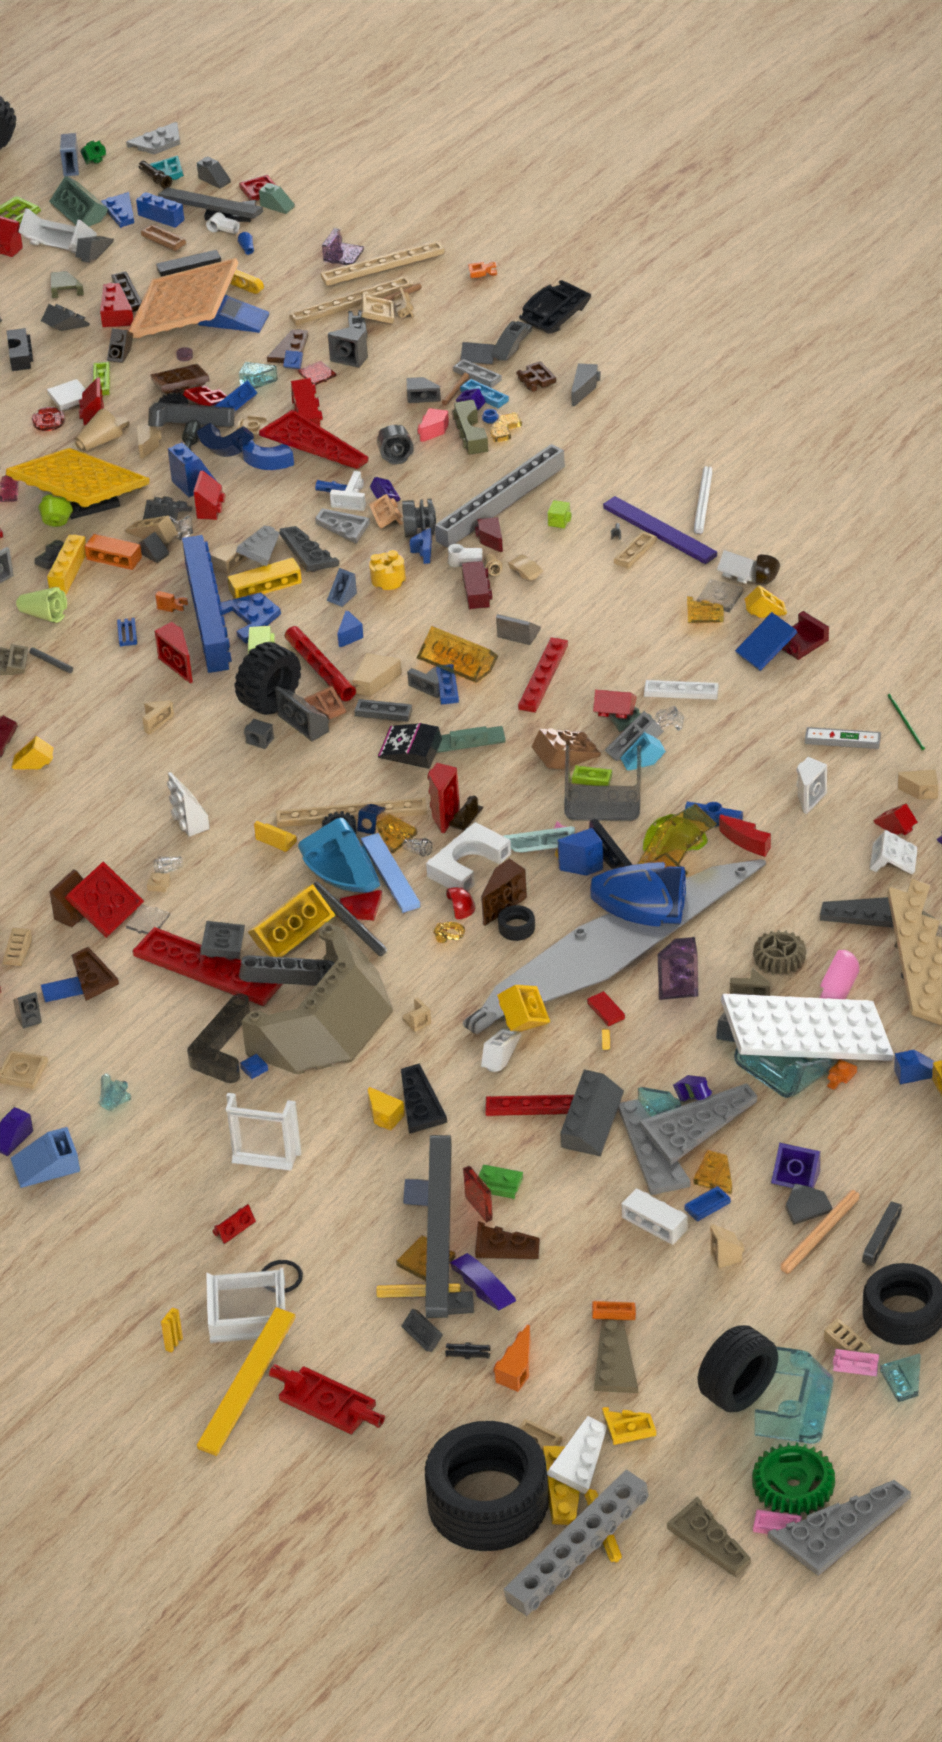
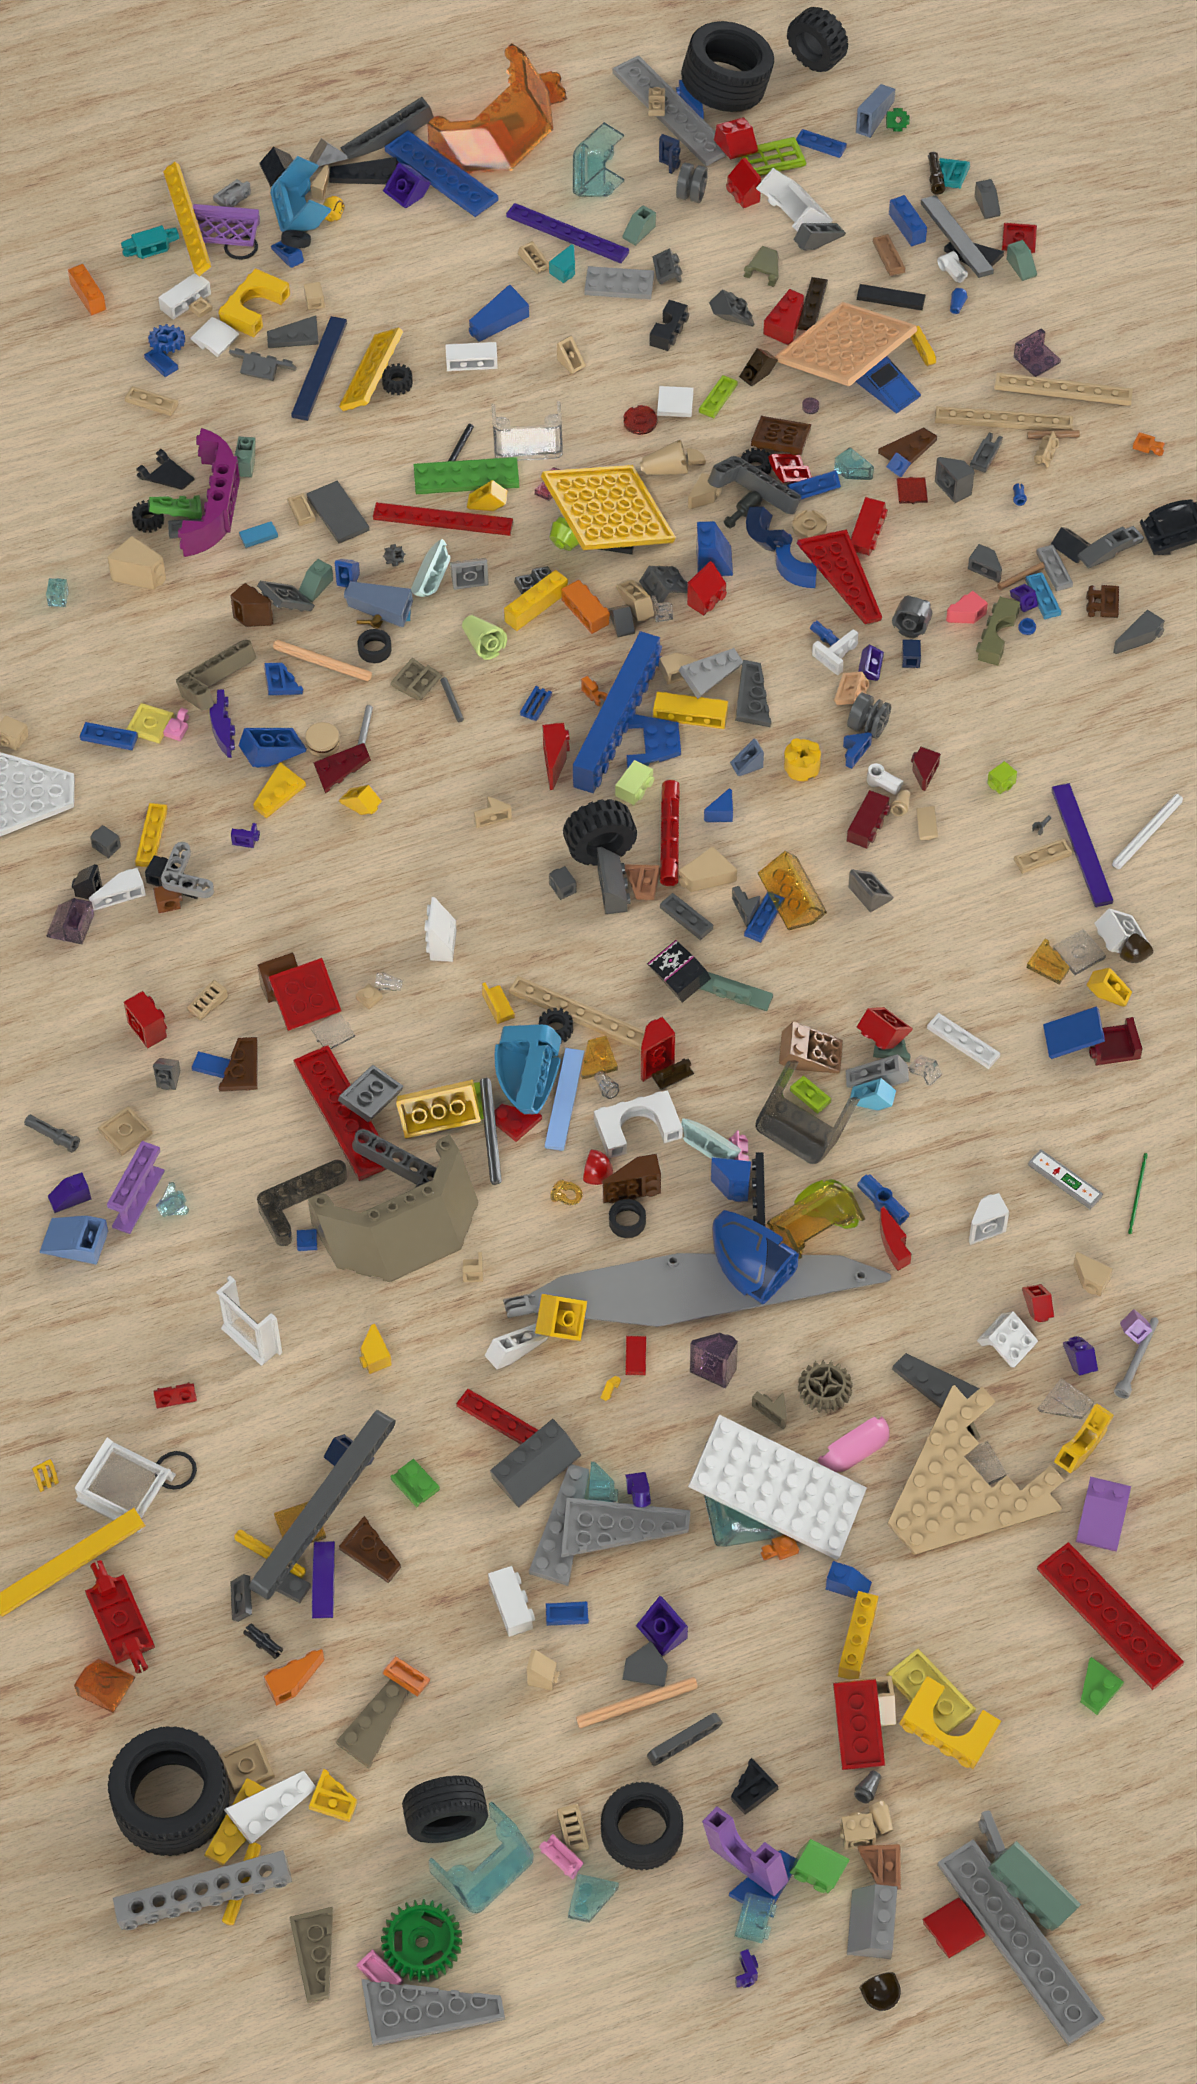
camera: 30 degrees right, 15 degrees up
(37, 192) = (821, 143): none -> blue tile
(74, 1092) = (135, 1187): none -> medium lavender fence
(78, 203) = (841, 175): sand green slope -> none
(91, 401) = (685, 425): red slope -> none
(120, 209) = (876, 199): wing -> none
(157, 140) = (970, 130): light grey wing -> none
(343, 524) = (805, 683): light grey wing -> none
(355, 1455) = (103, 1684): none -> clear orange slope
(369, 812) = (588, 1026): dark blue bracket -> none
(377, 309) = (1017, 443): tan tile -> none
(410, 341) = (1019, 495): none -> blue pin
(413, 469) = (911, 653): none -> dark blue brick
(421, 1102) = (411, 1360): black wing -> none
(477, 1193) = (380, 1490): clear red tile -> none
(499, 430) = (1036, 640): clear yellow tile -> none
(500, 495) = (963, 728): light grey brick -> none
(543, 675) = (854, 954): red plate -> none
(714, 1172) = (597, 1584): clear yellow wing -> none

